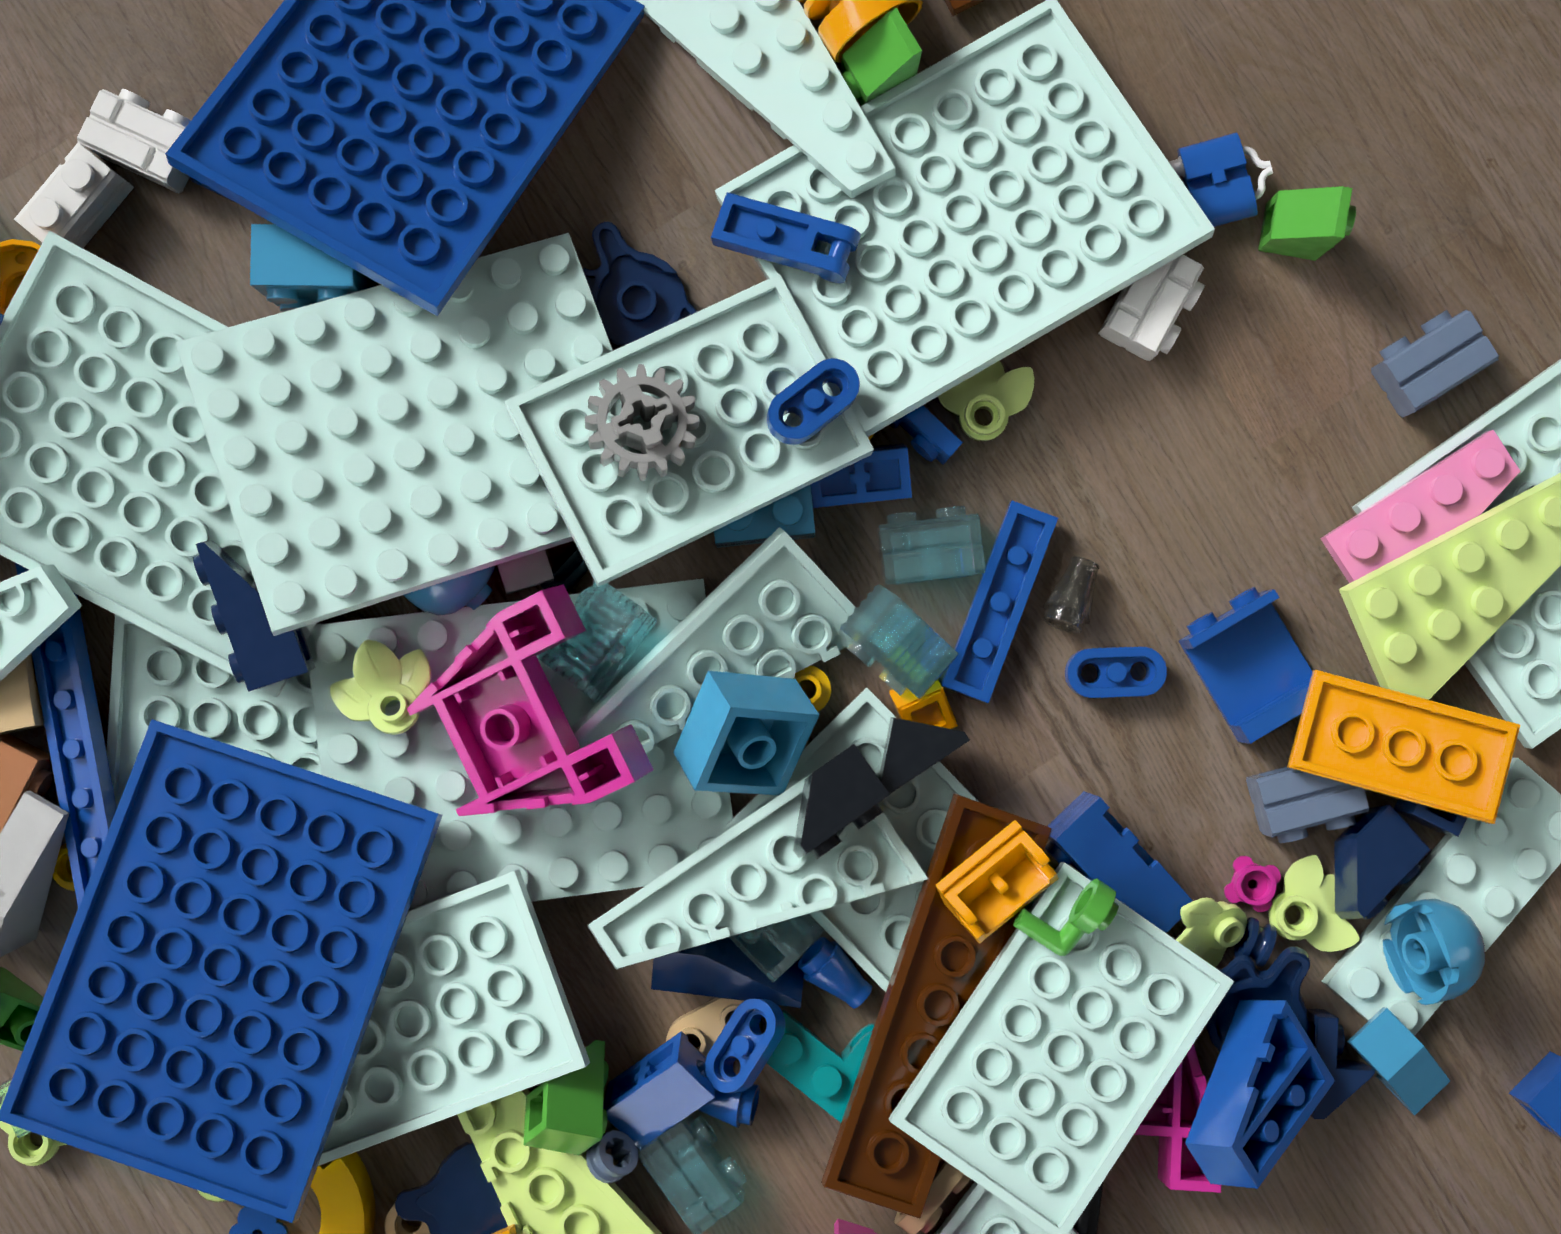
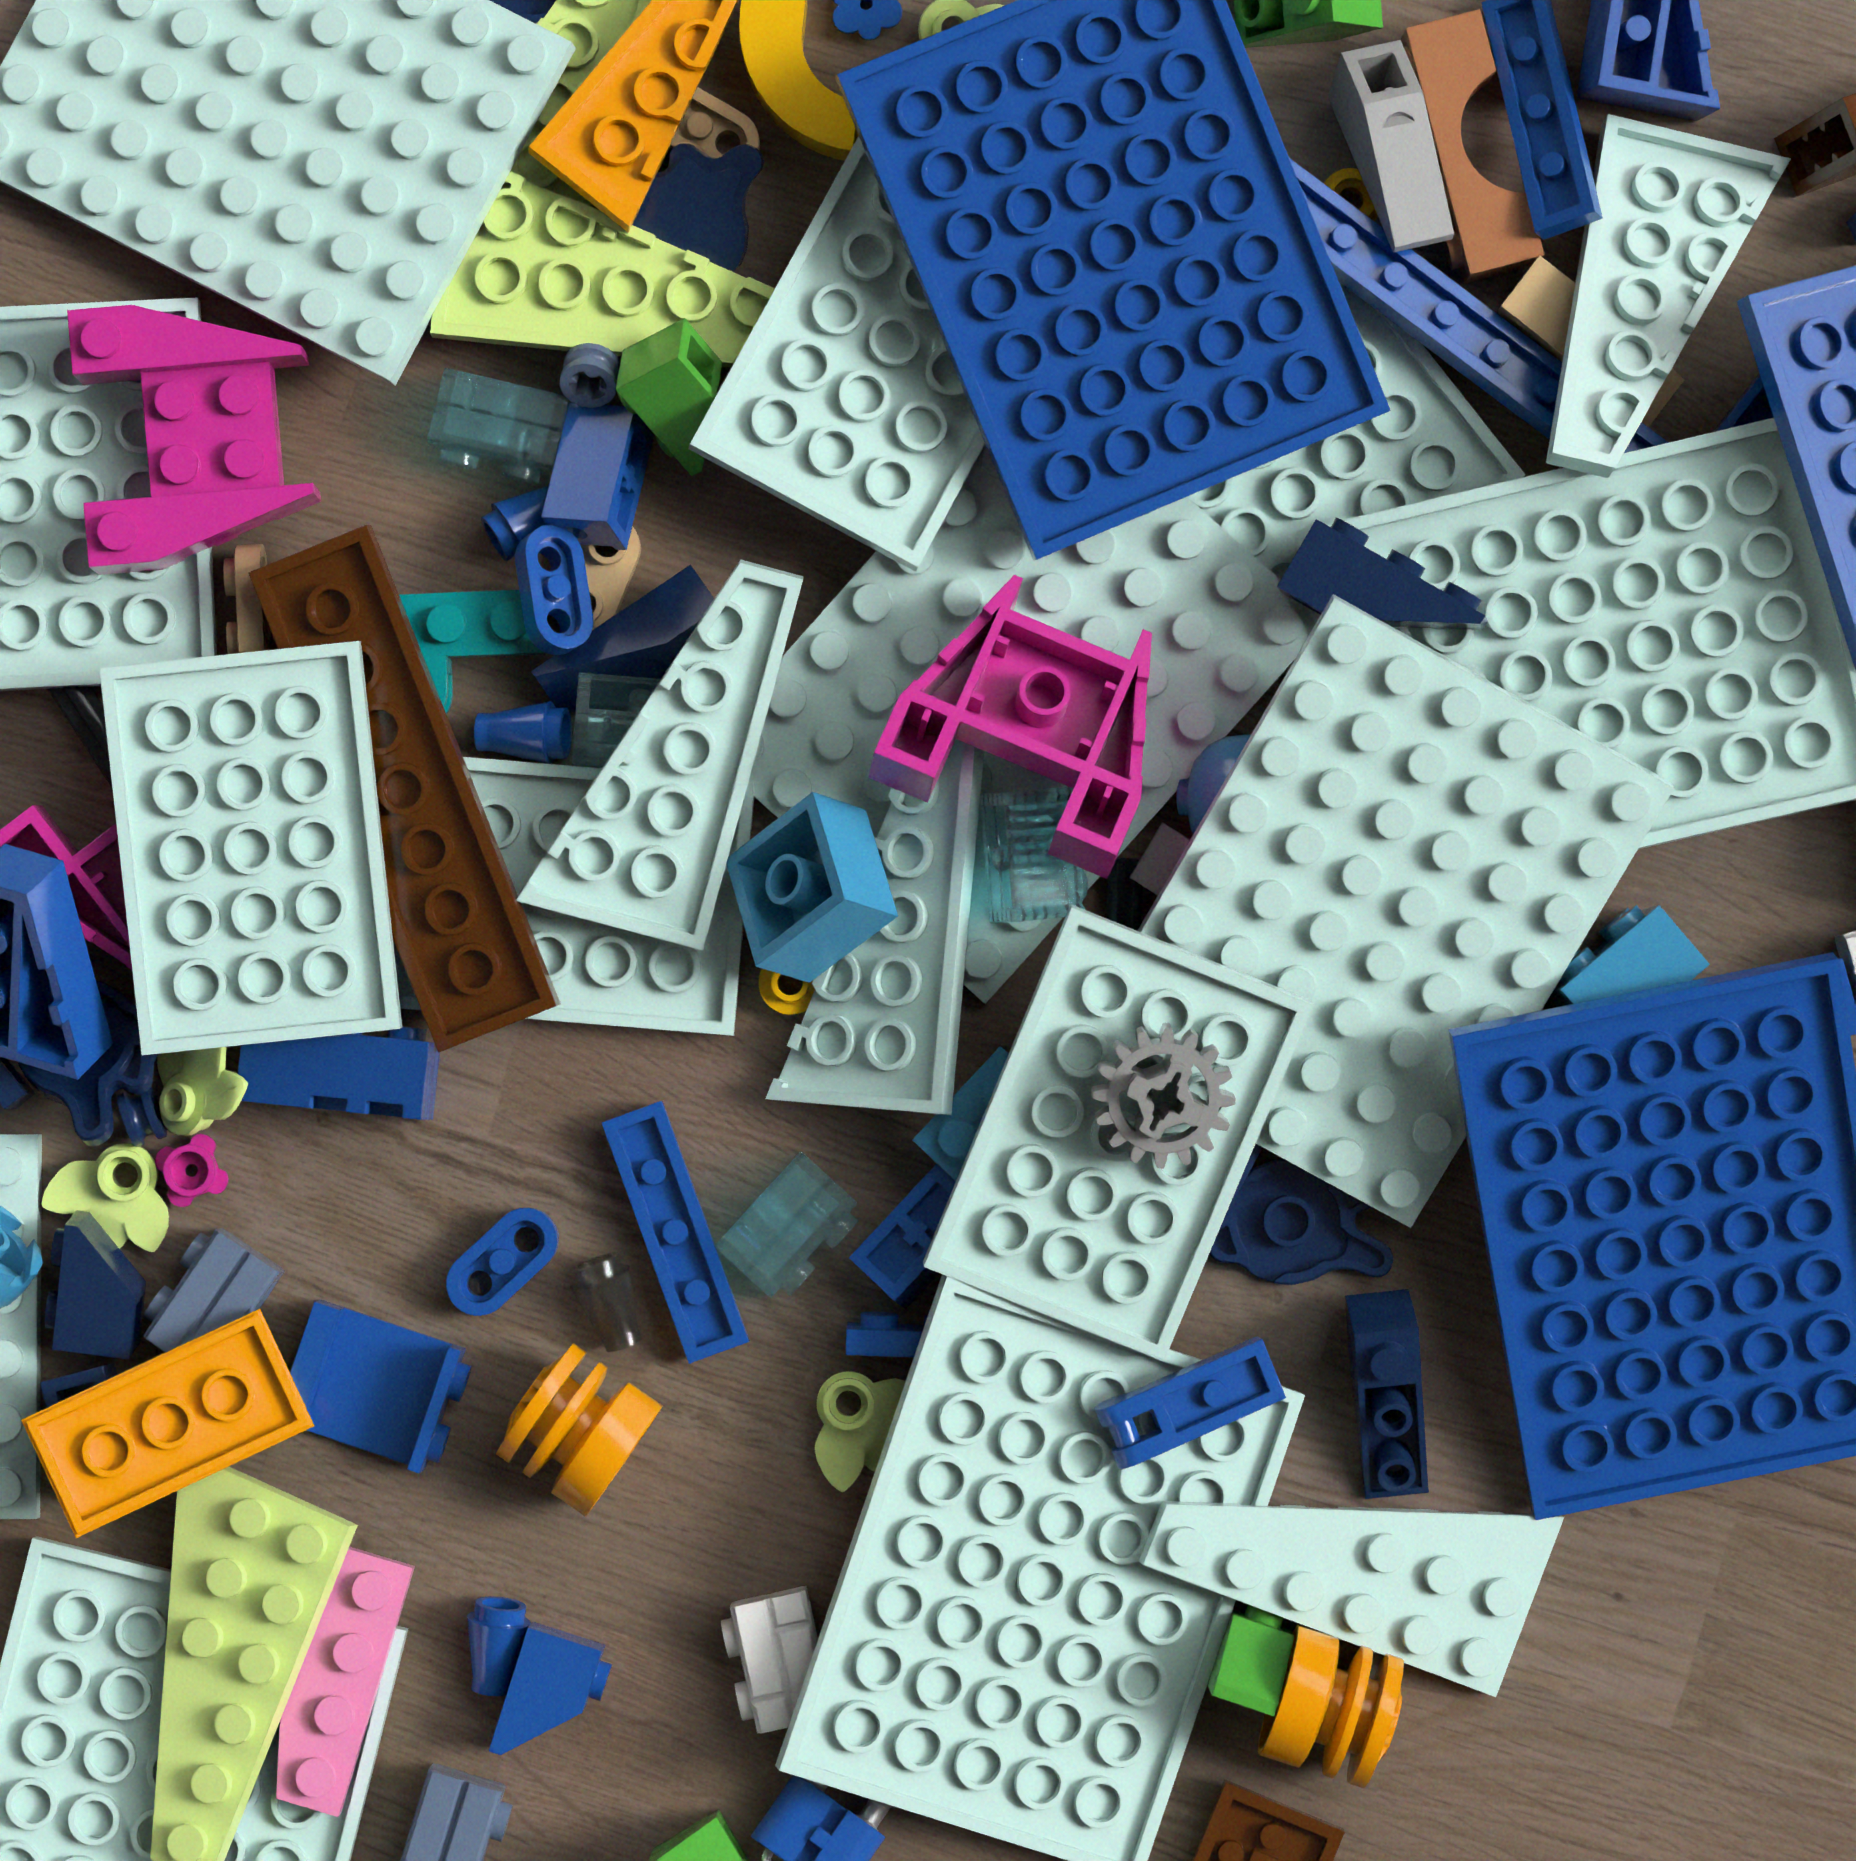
camera: 140 degrees right, 0 degrees up
(377, 681) = (1205, 635): yellowish green plate -> none
(664, 153) = (1387, 1392): none -> dark blue slope
(810, 402) = (1020, 1257): blue plate -> none
(834, 797) = (673, 899): black slope -> none
(899, 641) = (740, 1104): clear light blue brick -> none
(913, 749) = (636, 1012): black slope -> none
(930, 709) = (661, 1065): light orange slope -> none
(997, 881) = (450, 953): light orange hinge -> none
(1091, 910) = (337, 1004): bright green plate -> none
(1158, 532) = (578, 1428): none -> light orange wheel
(1299, 401) = (549, 1685): none -> blue slope
(1307, 455) = (495, 1642): none -> blue cone

